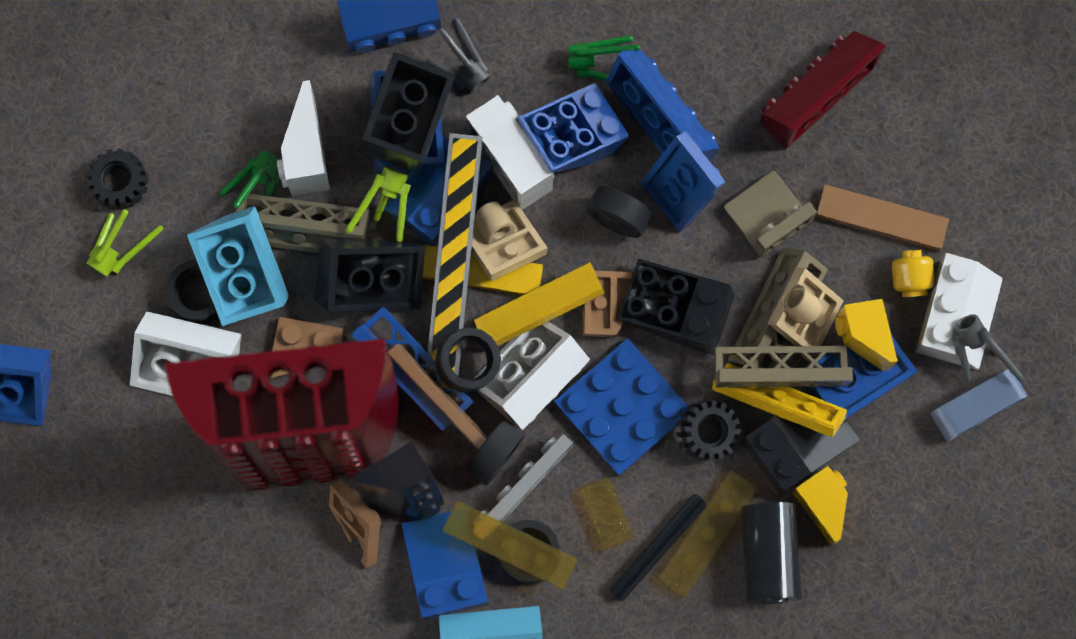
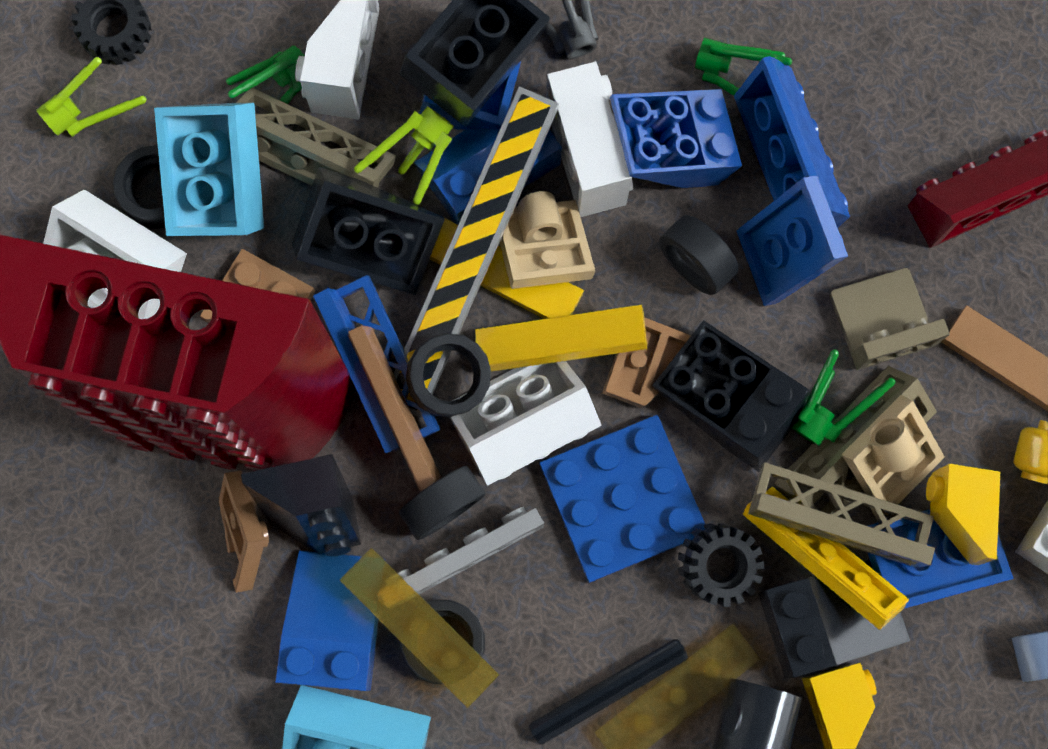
camera: 20 degrees right, 0 degrees up
(606, 513) = (557, 625): clear yellow tile -> none
(741, 304) = (815, 420): none -> green plant

